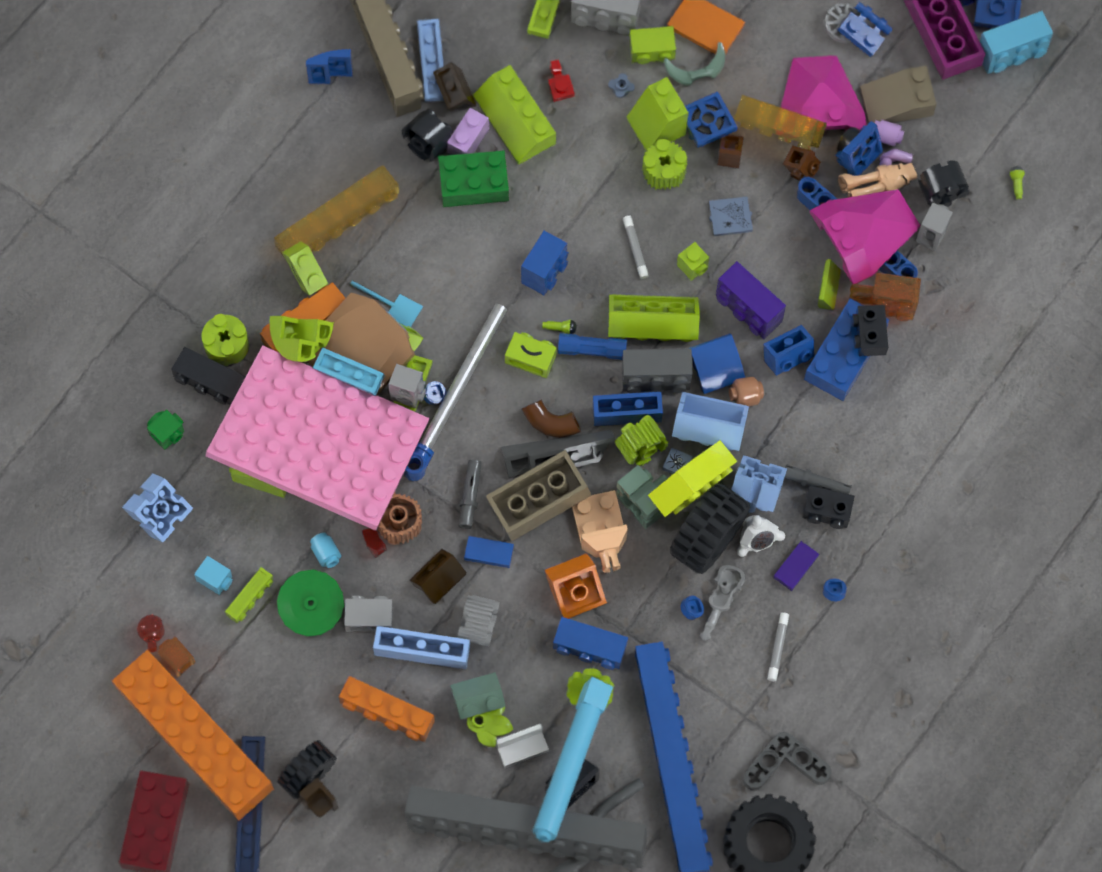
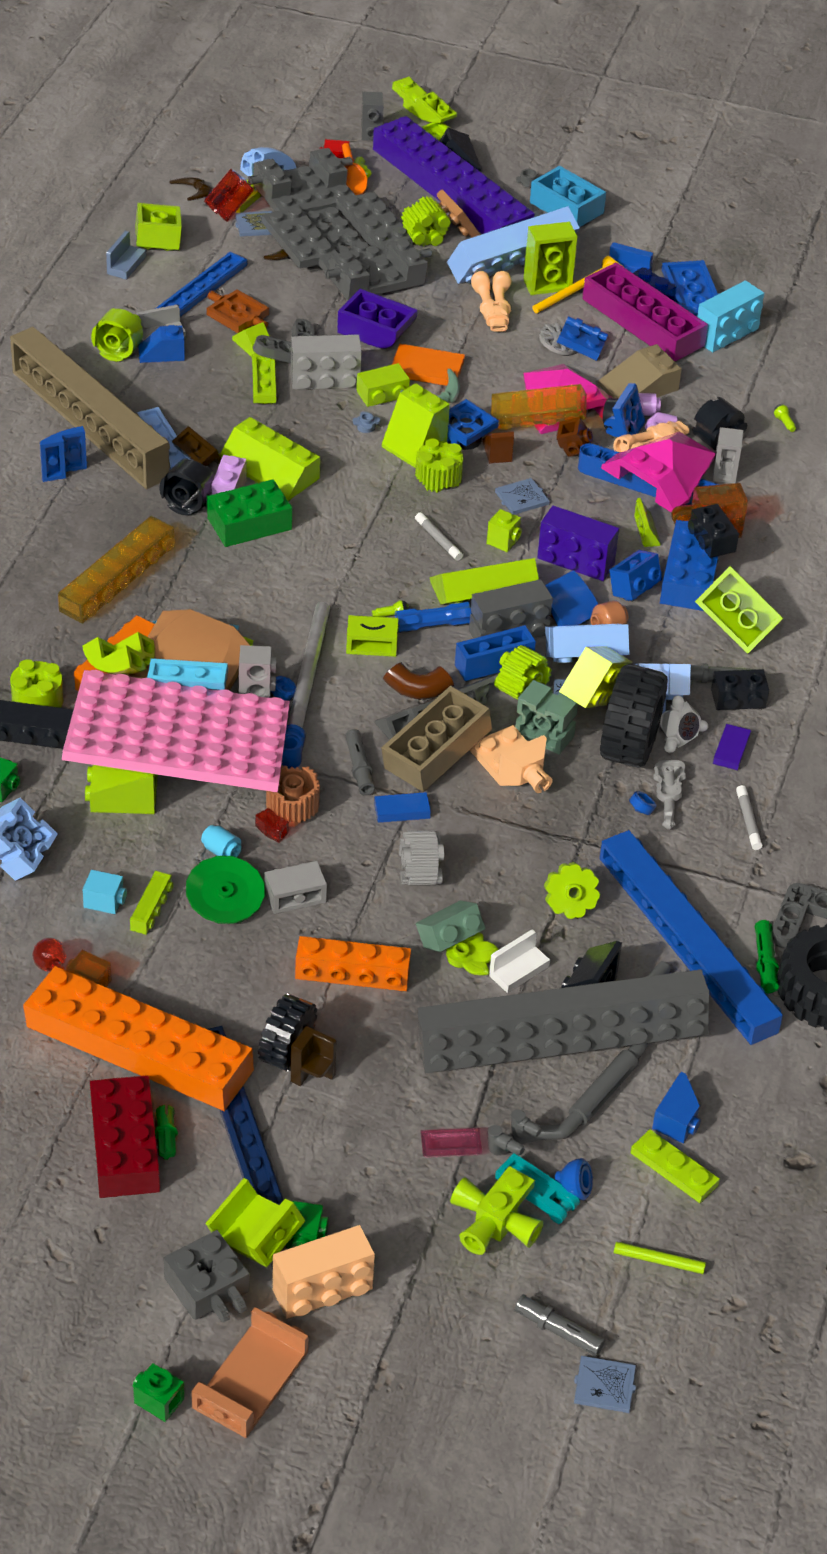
camera: 20 degrees left, 25 degrees down
(188, 827) = (166, 1132): none -> green axle
(305, 268) = (102, 609): lime brick -> none
(421, 647) = (368, 897): light blue brick -> none
(438, 576) = (357, 837): dark brown panel -> none
(544, 263) = (354, 557): blue brick -> none
(560, 85) = (303, 433): red plate -> none
(576, 586) = (511, 811): orange slope -> none
(589, 708) = (583, 889): medium azure brick -> none
(590, 643) = (546, 852): blue brick -> none
(725, 806) = (767, 964): none -> green pin
(834, 590) = (782, 755): blue tile -> none
(863, 420) = (739, 609): none -> lime slope

